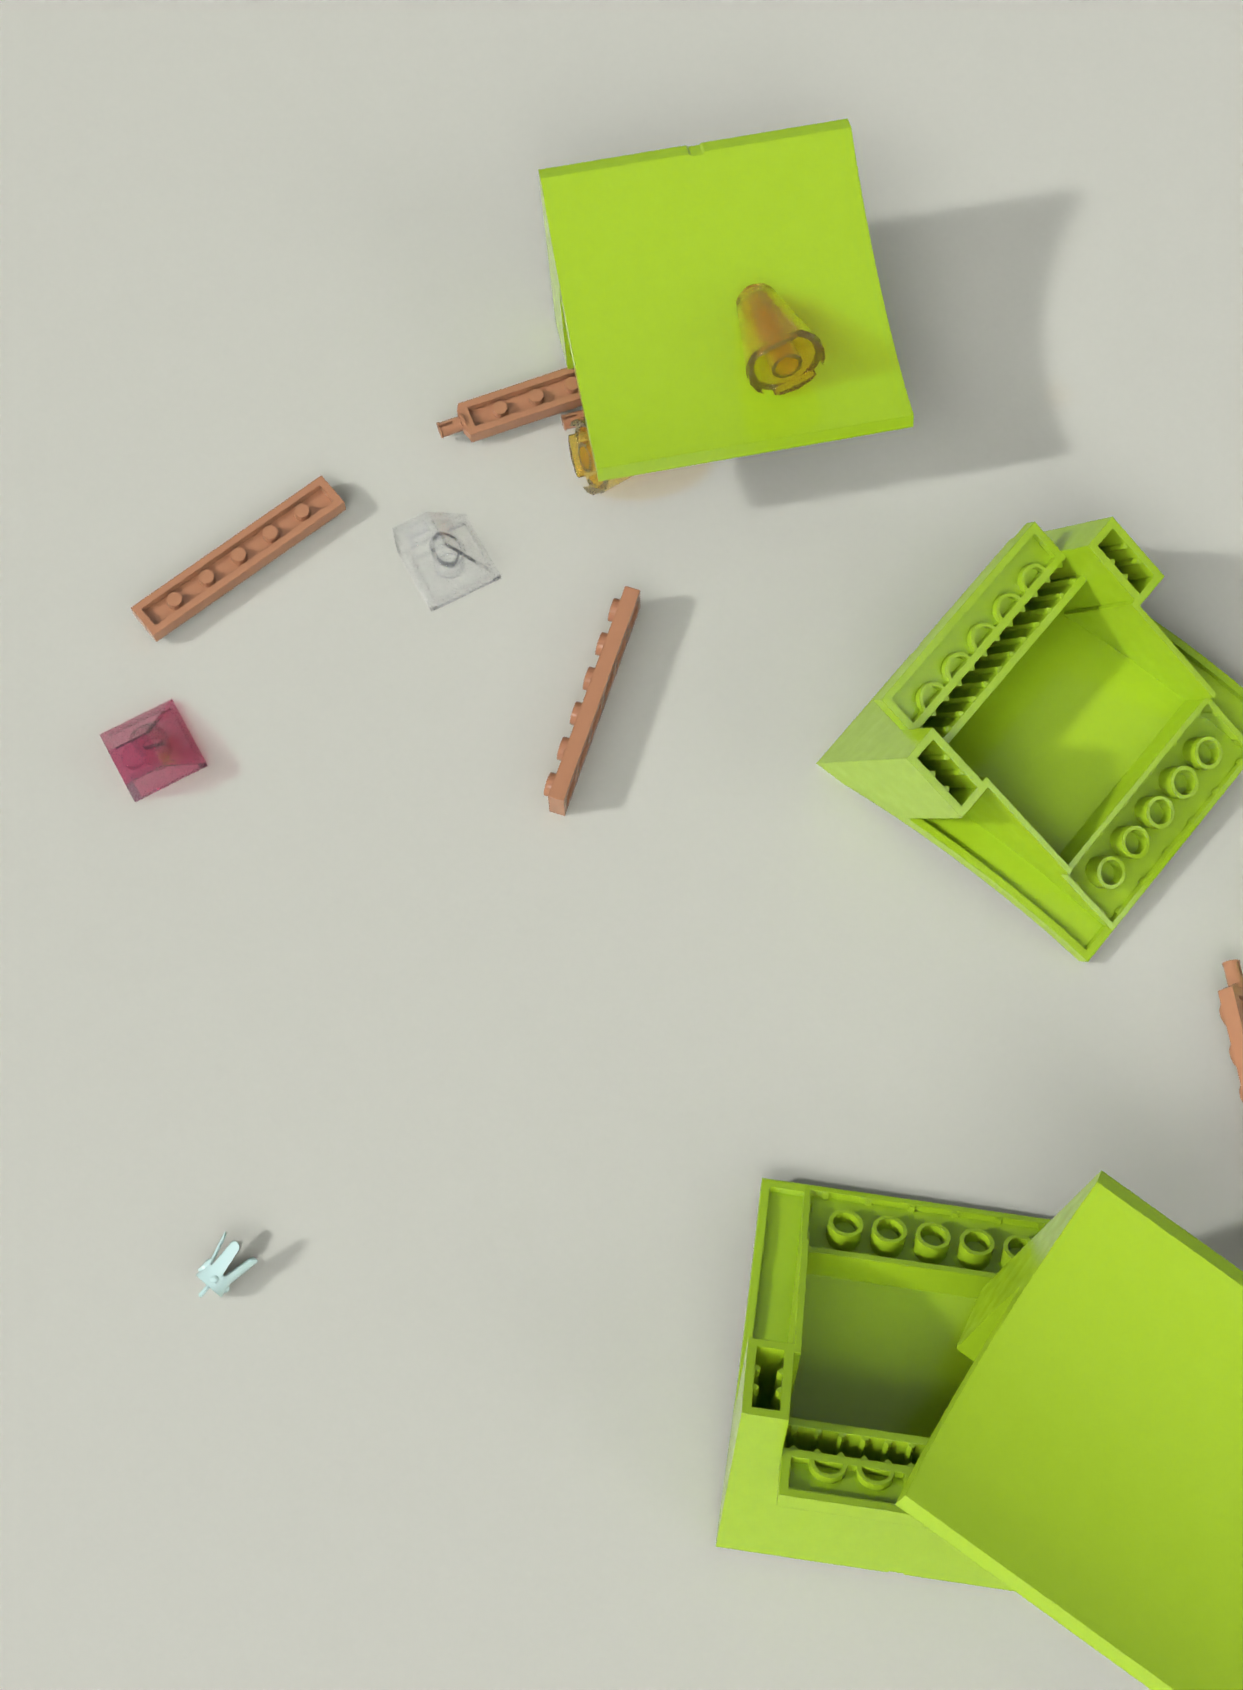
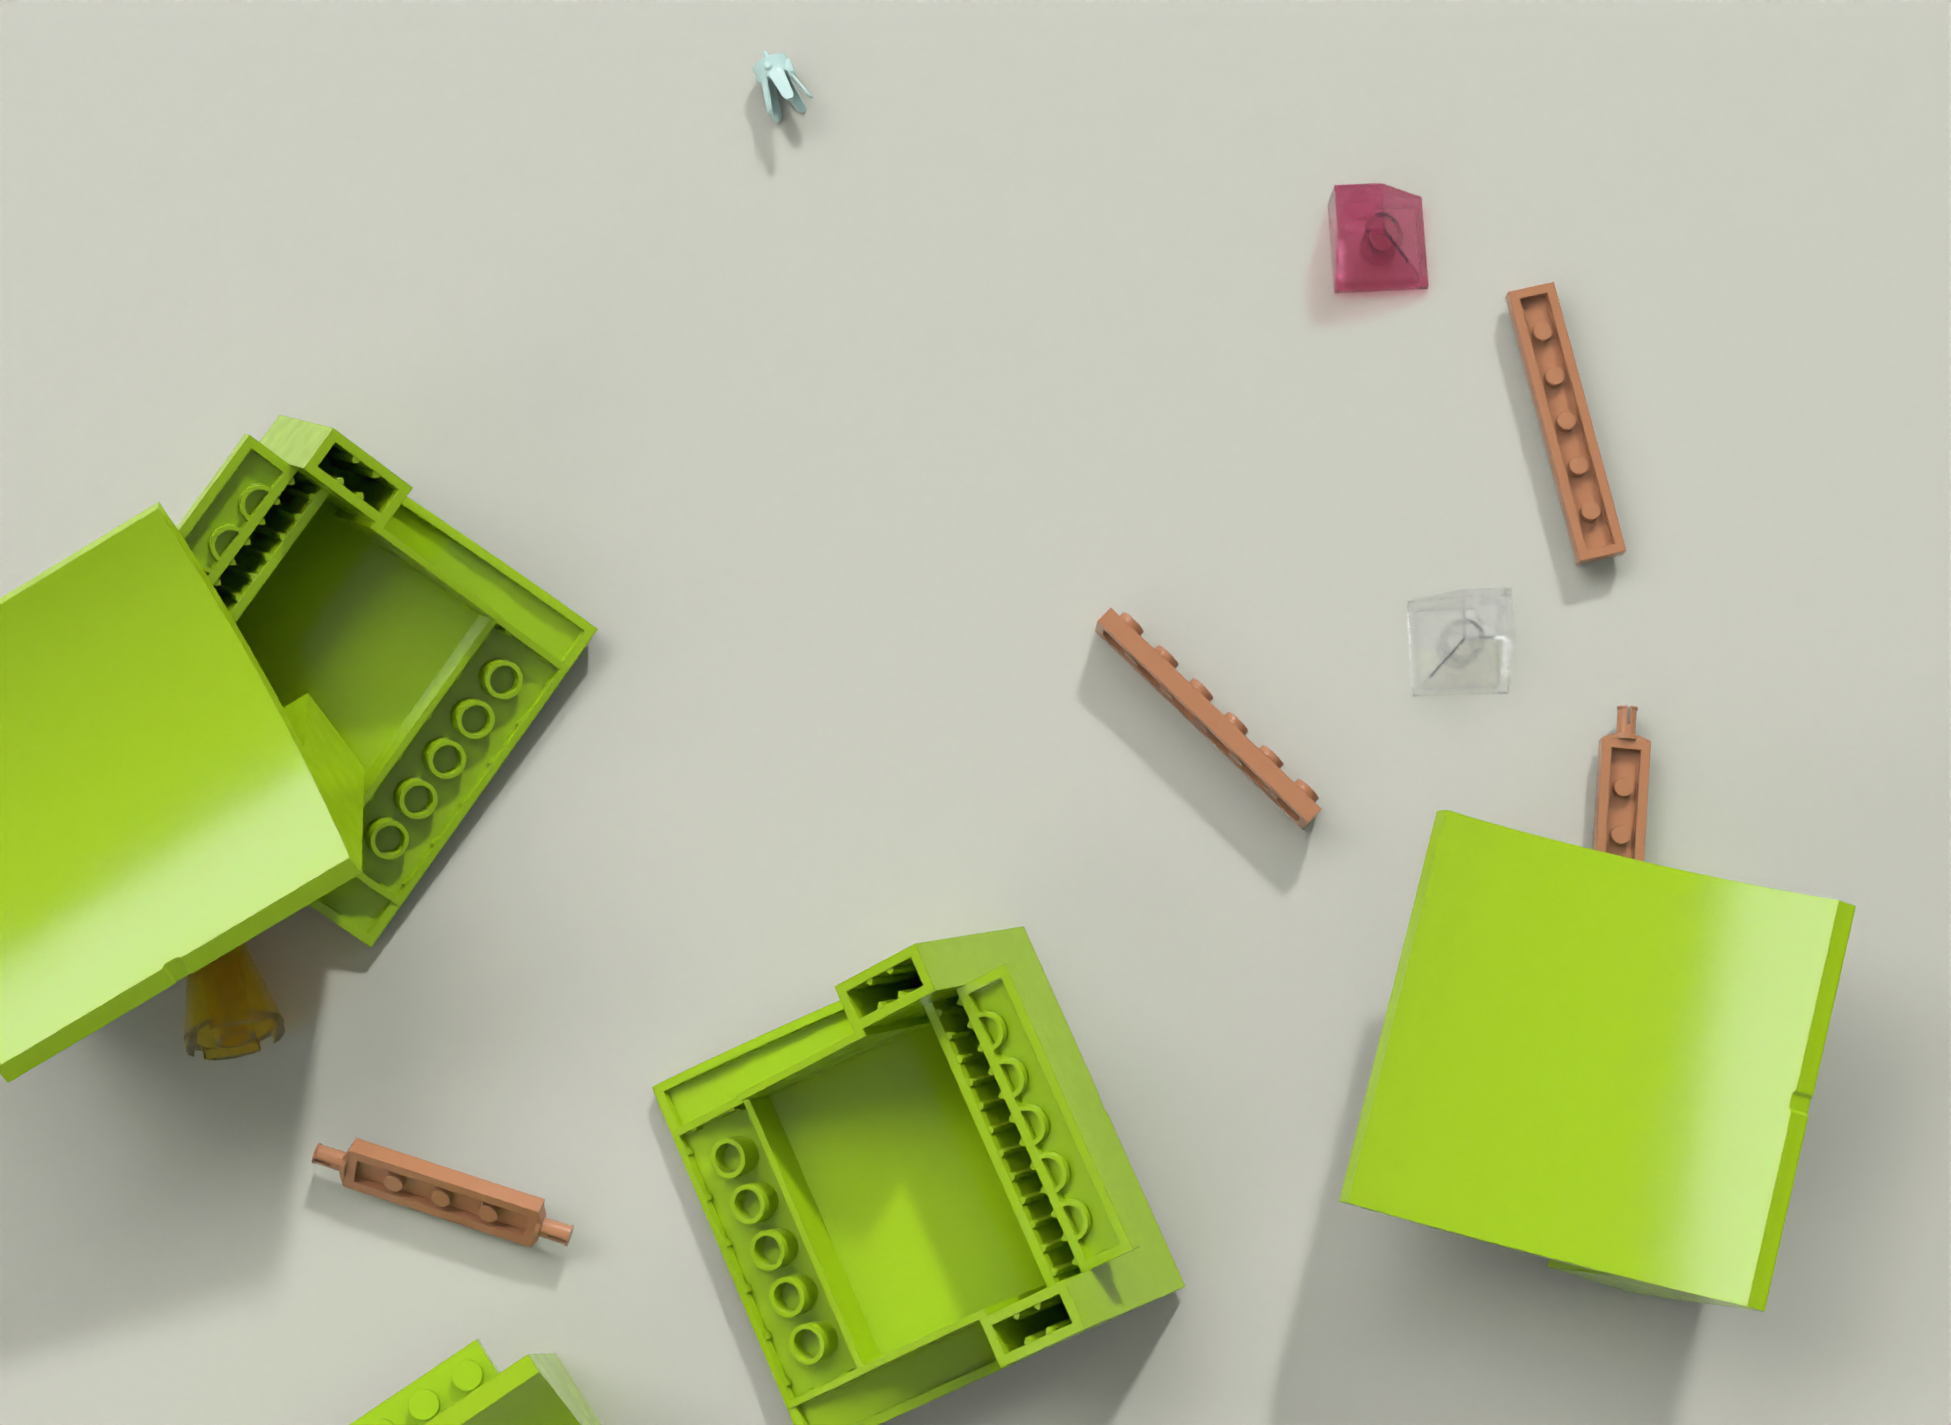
camera: 110 degrees right, 10 degrees up
(775, 342) = (1509, 1076): clear yellow cone -> none

